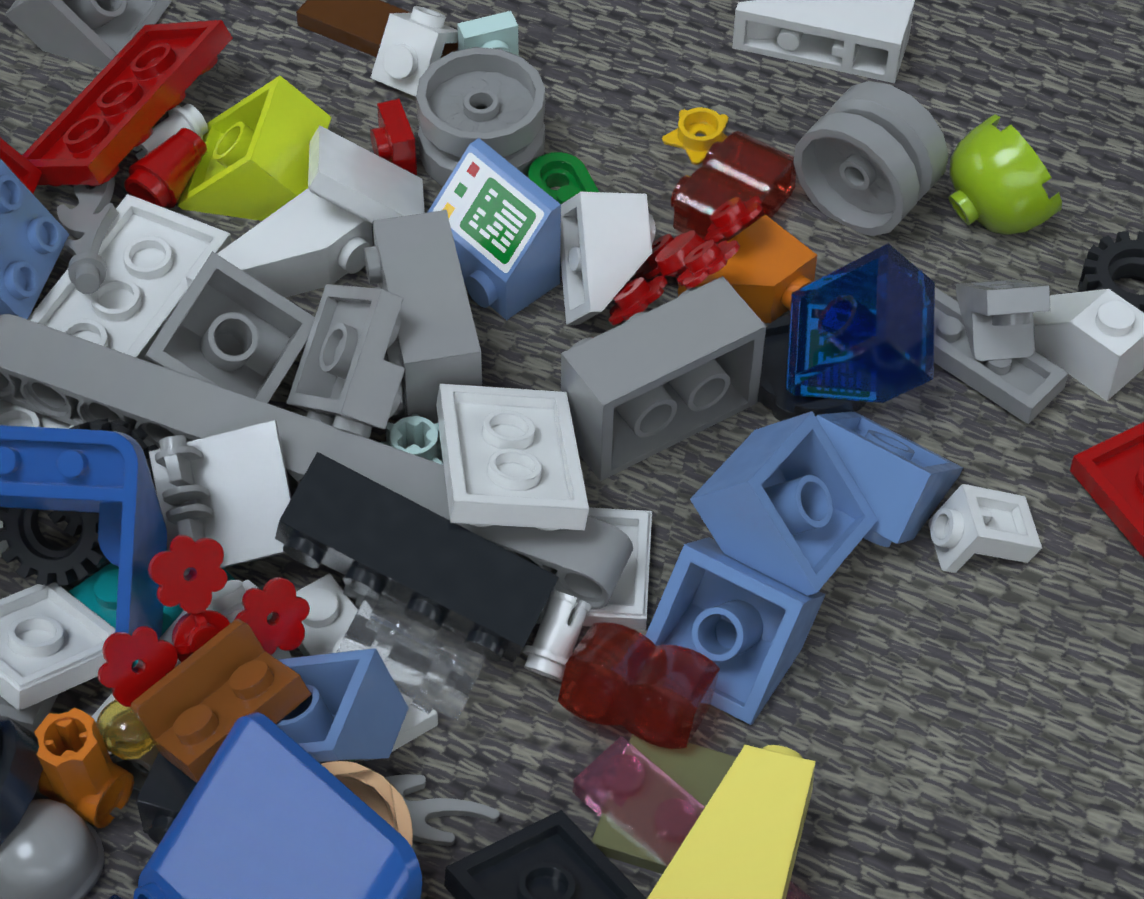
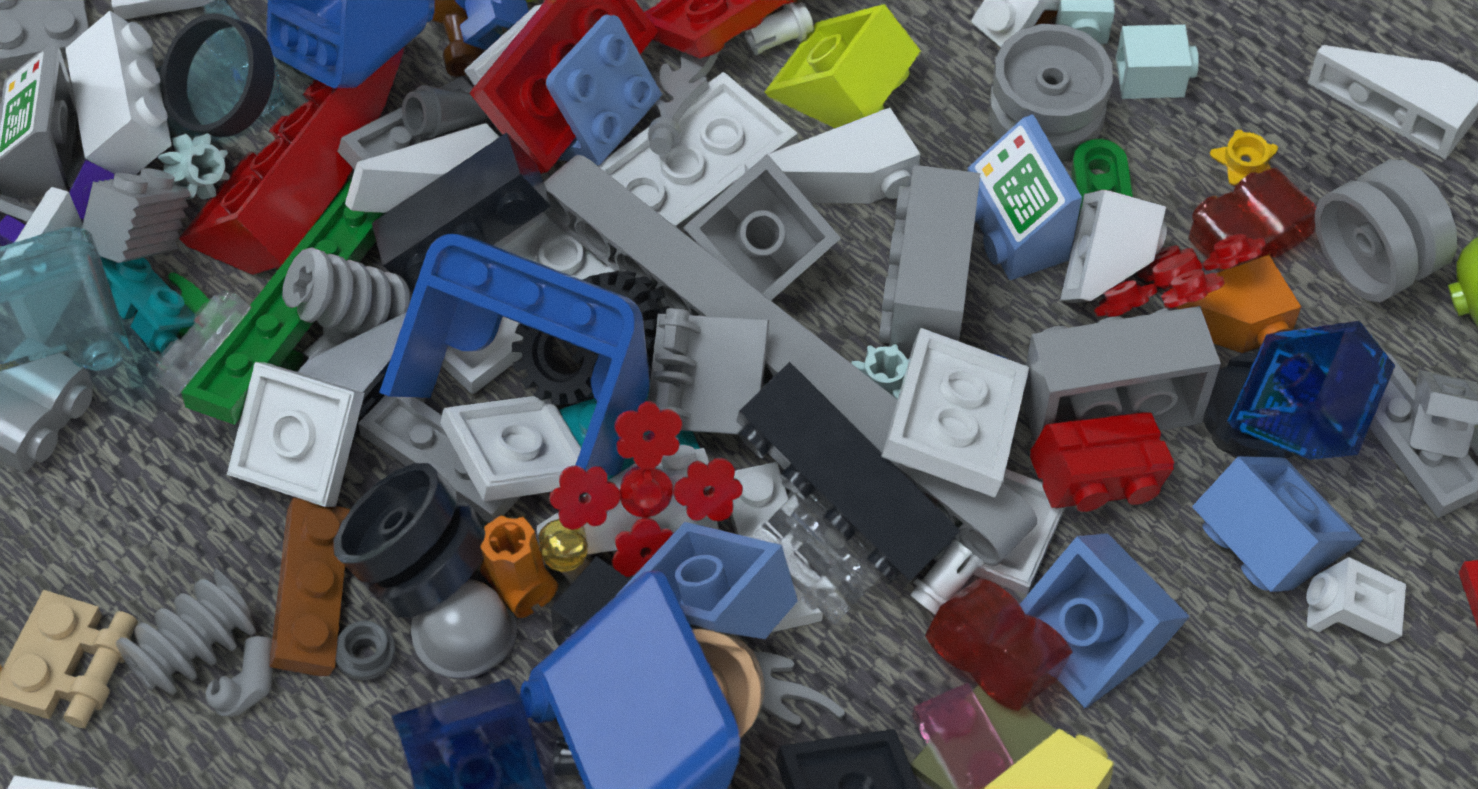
camera: 20 degrees right, 5 degrees up
(166, 169) = (764, 58): red cone -> none
(212, 688) = (638, 538): dark orange bracket -> none
(343, 364) = (844, 286): light grey plate -> none
(361, 179) = (925, 121): white tile -> none
(394, 137) = (968, 88): red plate -> none
(576, 64) = (1155, 61): none -> light aqua brick
(666, 464) = (1101, 461): none -> red brick
(786, 505) = (1180, 529): medium blue slope -> none

